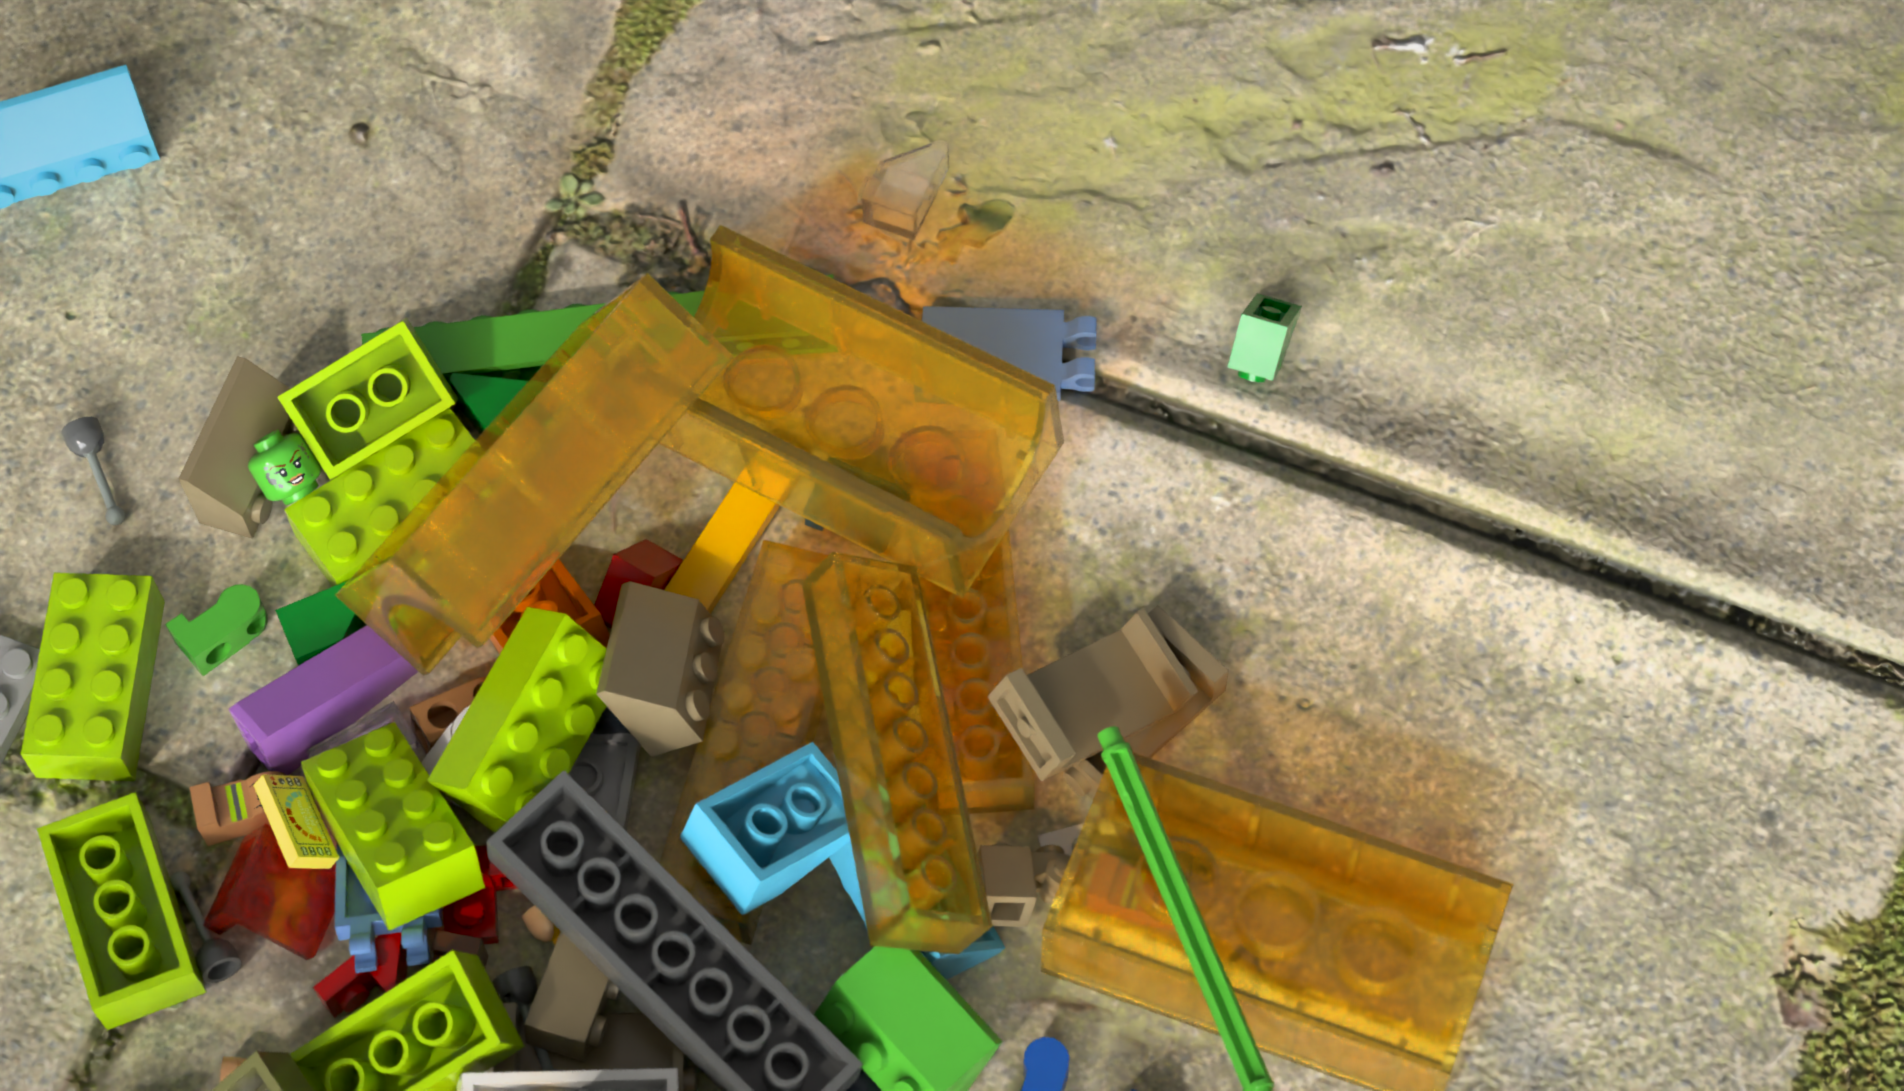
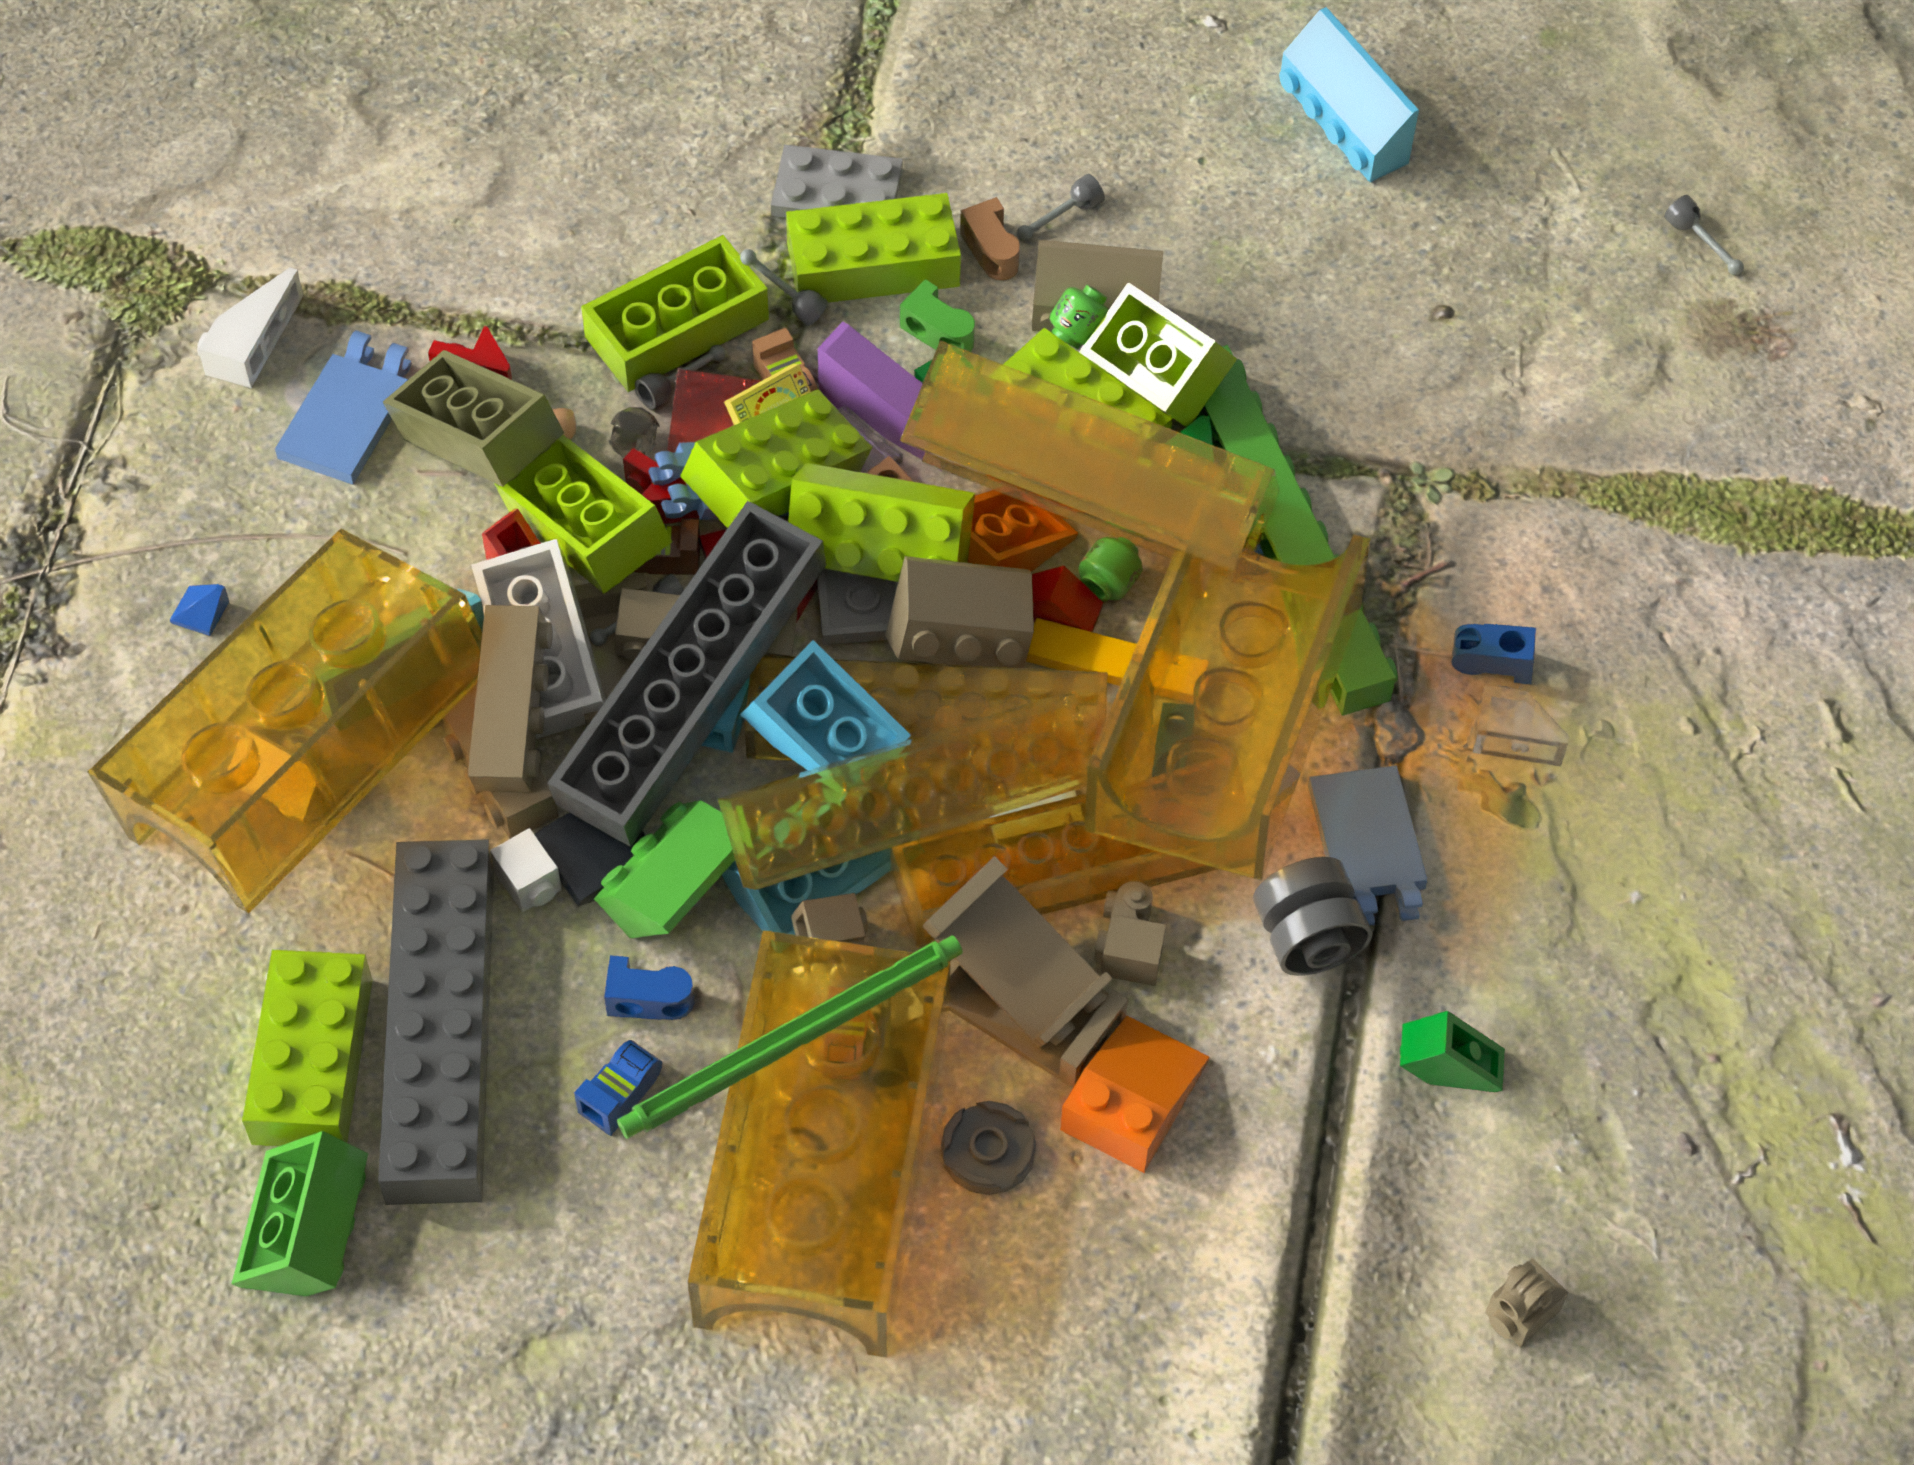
camera: 75 degrees right, 5 degrees down
(122, 550) = (988, 240): none -> medium nougat leg
(148, 764) = (806, 304): none -> hinge
(278, 990) = (634, 429): none -> clear smoke piece
(621, 521) = (1111, 568): none -> bright green head
(812, 182) = (1495, 650): none -> blue leg
(1078, 601) = (1132, 943): none -> dark tan brick
(1114, 413) = (1312, 916): none -> dark grey wheel
(1254, 628) = (1132, 1093): none -> orange slope
(1286, 772) = (988, 1148): none -> dark grey tile
(1538, 335) = (1525, 1302): none -> dark tan brick

